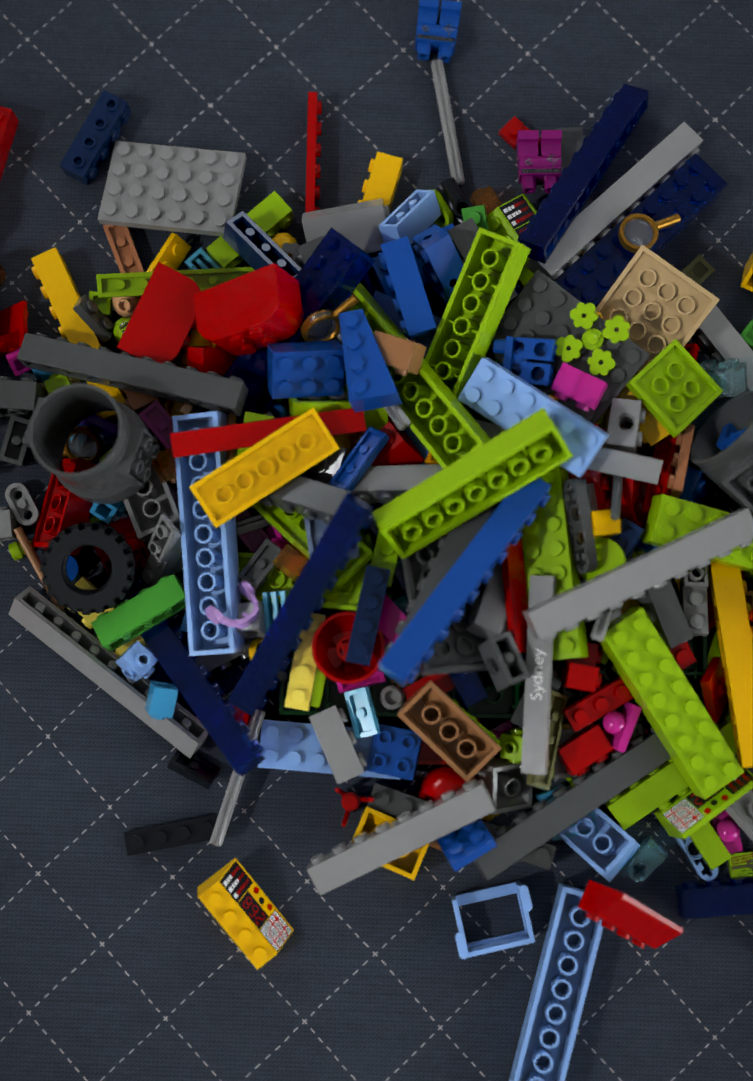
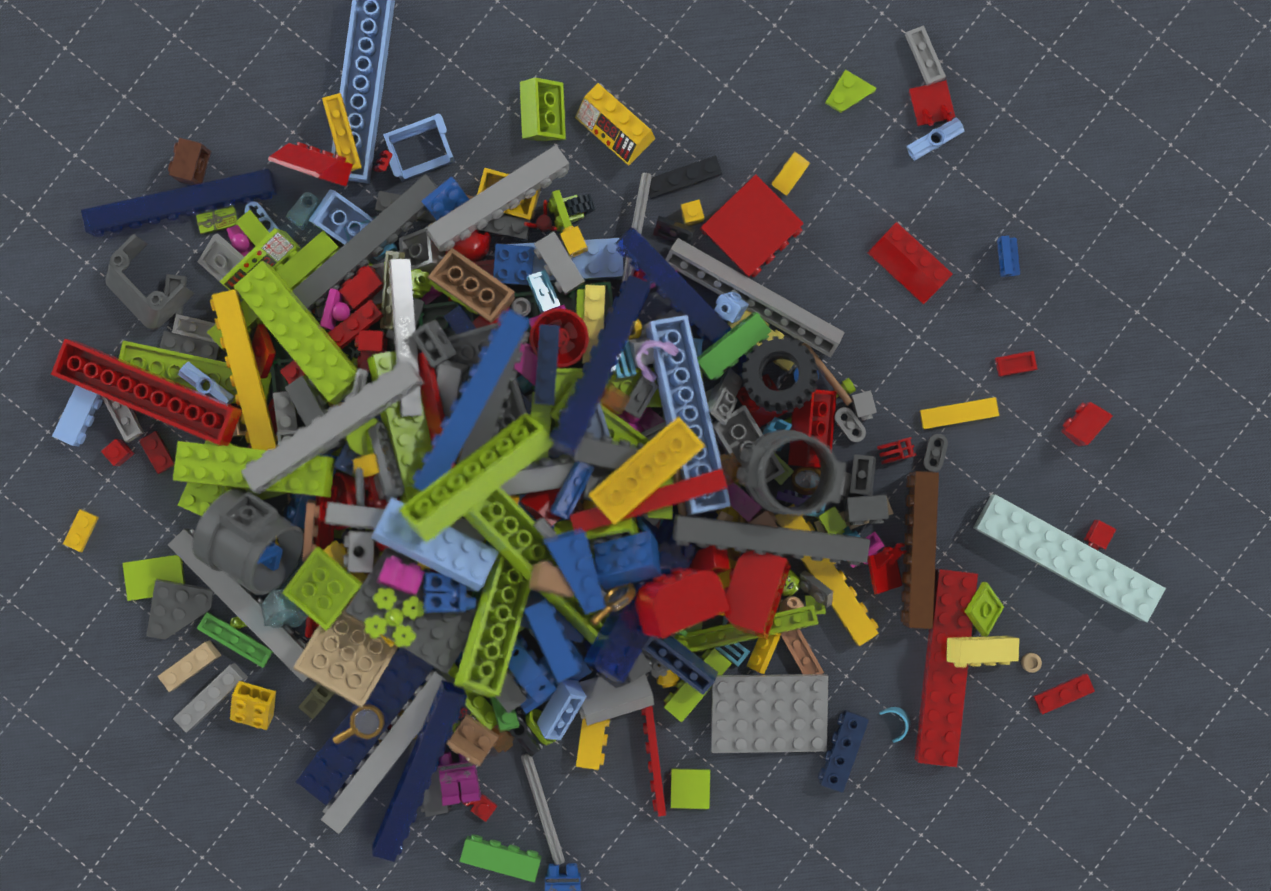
camera: 170 degrees right, 5 degrees up
(22, 170) = (904, 715): none -> medium azure helmet
(38, 820) = (790, 173): none -> yellow slope
(96, 759) = (753, 226): none -> red panel
(161, 700) = (704, 278): dark azure brick -> none
(167, 787) = (692, 212): none -> yellow brick
(277, 122) = (690, 788): none -> lime tile
(315, 769) = (573, 241): none -> yellow brick
(317, 812) = (569, 209): none -> plate
(332, 945) = (542, 110): none -> lime slope
(502, 73) = (501, 858): none -> bright green brick
(518, 195) = (472, 740): none -> medium nougat bracket
(536, 915) = (383, 162): none -> red tile
(586, 955) = (341, 129): none -> yellow tile

